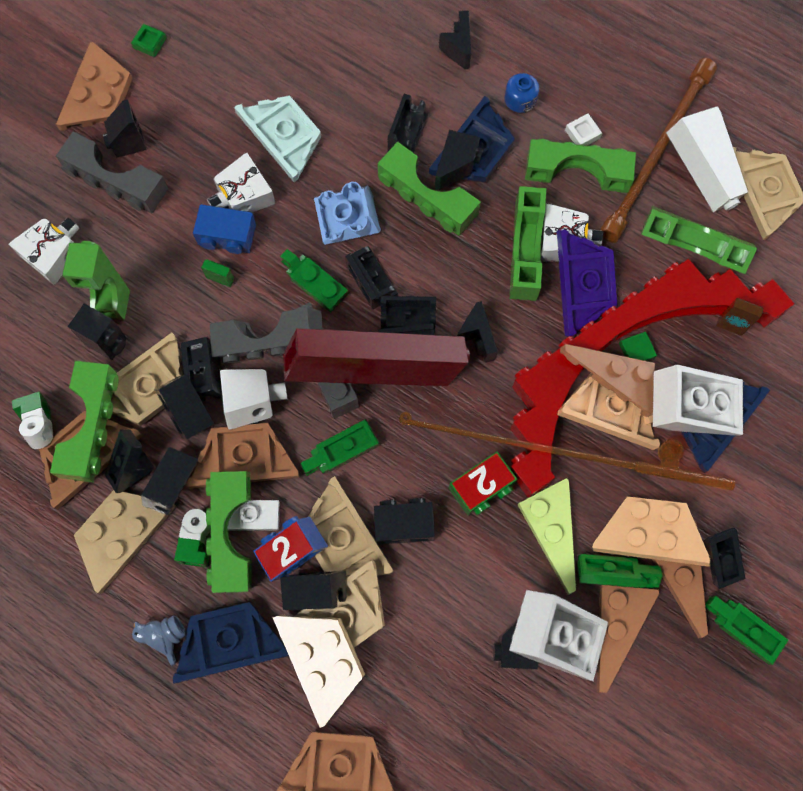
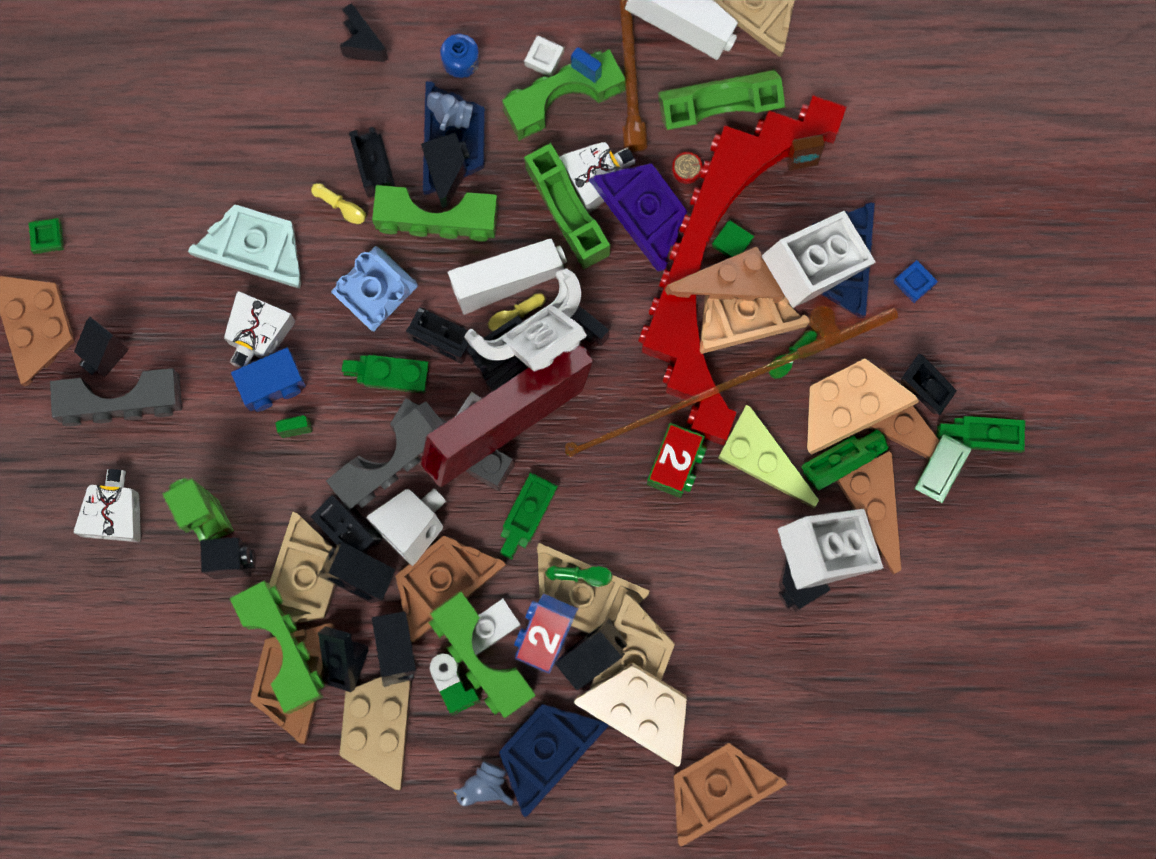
camera: 30 degrees left, 5 degrees up
(35, 418) = (233, 682): white leg -> none
(358, 530) = (594, 576): none -> green piece
(368, 151) = (349, 210): none -> light yellow piece
(404, 522) = (629, 542): black brick -> none
(442, 297) = (520, 310): none -> light yellow piece
(442, 319) = (541, 335): none -> white piece
(447, 262) = (505, 274): none -> white slope
(487, 123) = (449, 110): none -> sand blue animal
(610, 470) = (808, 337): none -> green piece
(611, 149) = (586, 64): none -> blue tile
(637, 274) = (687, 168): none -> tile
(694, 633) = (943, 468): none -> tile
(764, 471) = (915, 281): none -> blue tile

